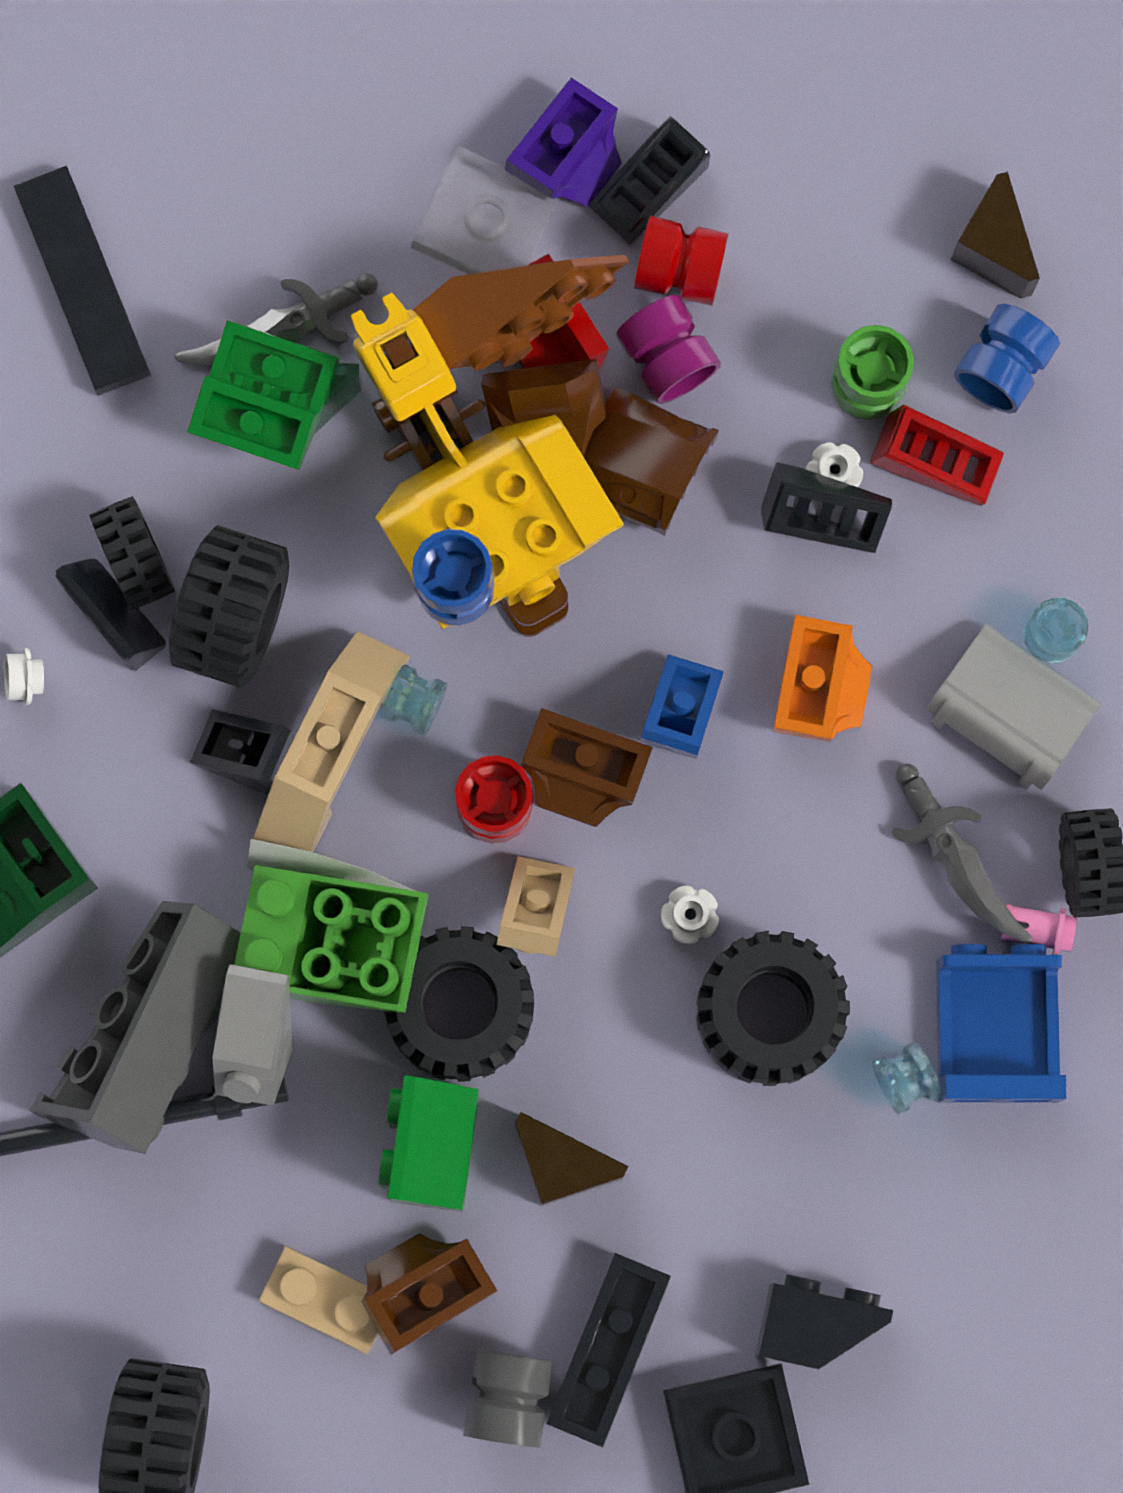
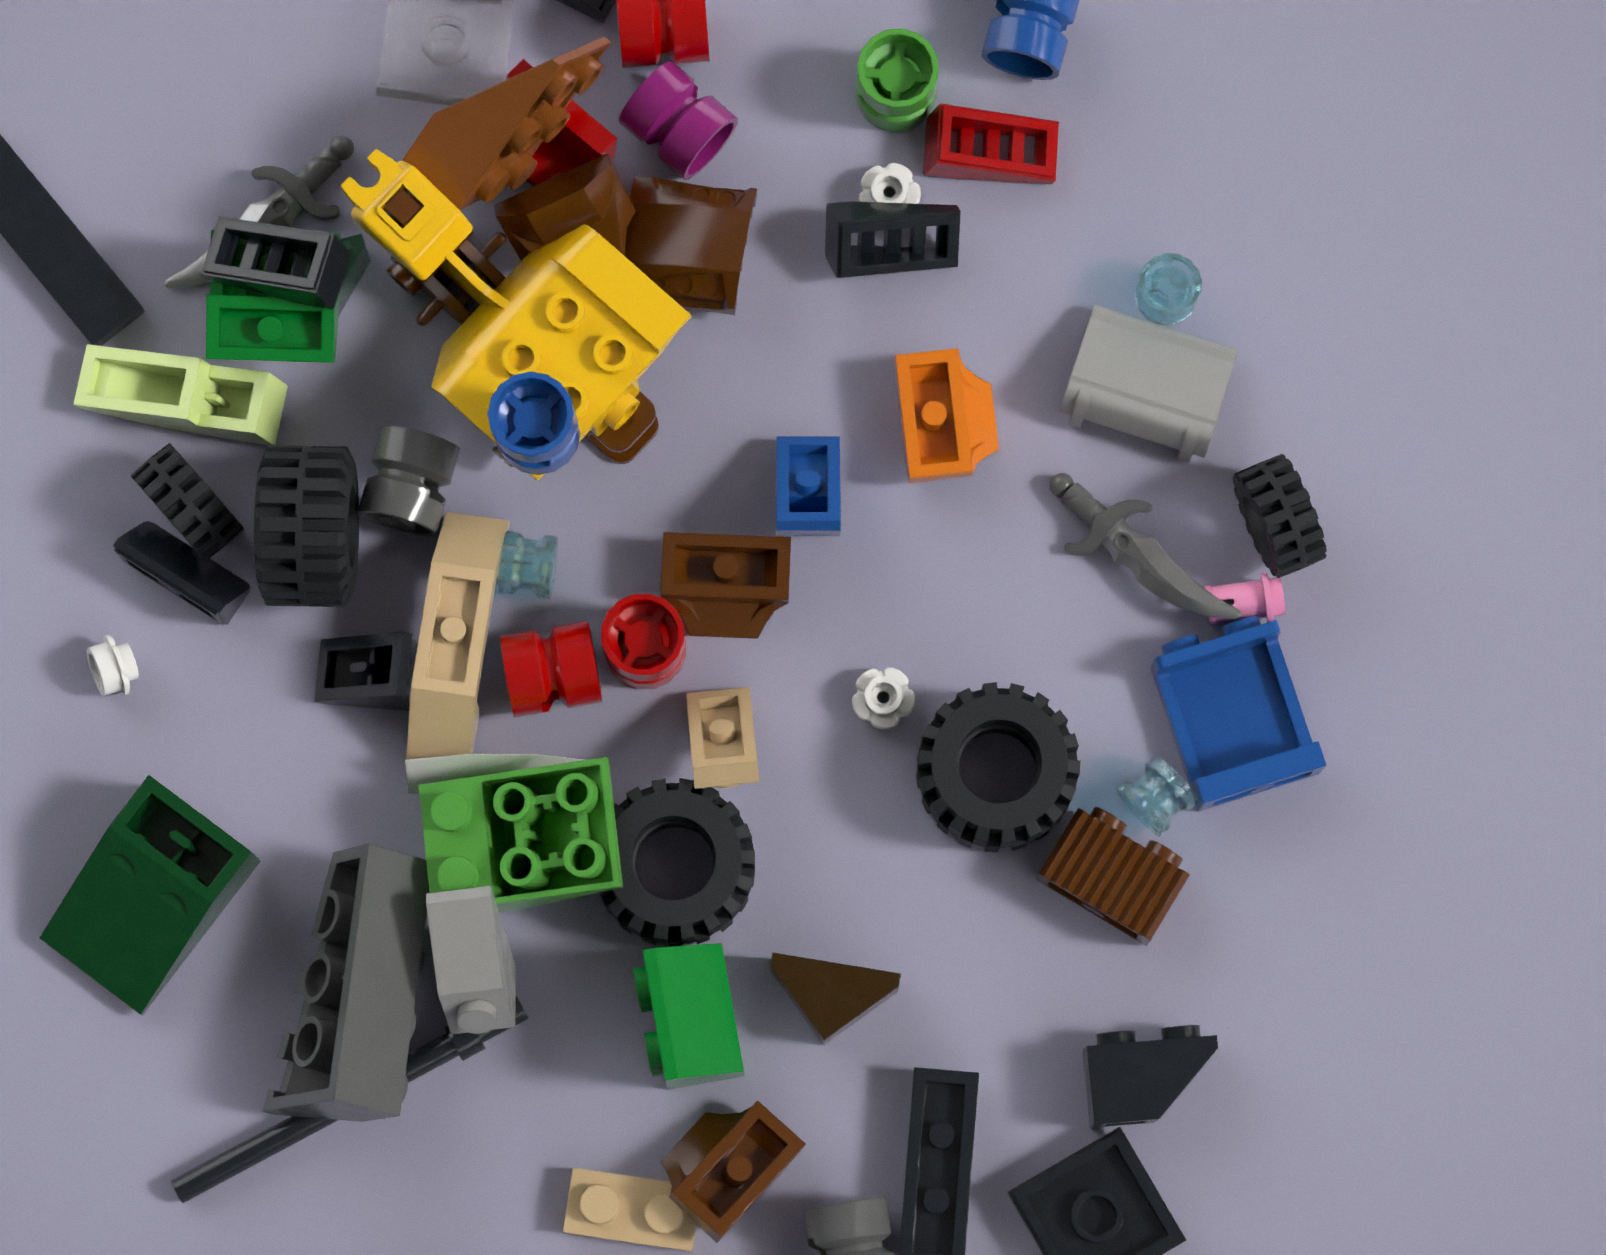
camera: 15 degrees left, 0 degrees up
(159, 456) = (181, 394): none -> yellowish green slope
(303, 388) = (314, 274): none -> black slope
(332, 593) = (408, 480): none -> dark grey wheel
(404, 798) = (551, 668): none -> red wheel
(846, 1136) = (1114, 874): none -> reddish brown brick

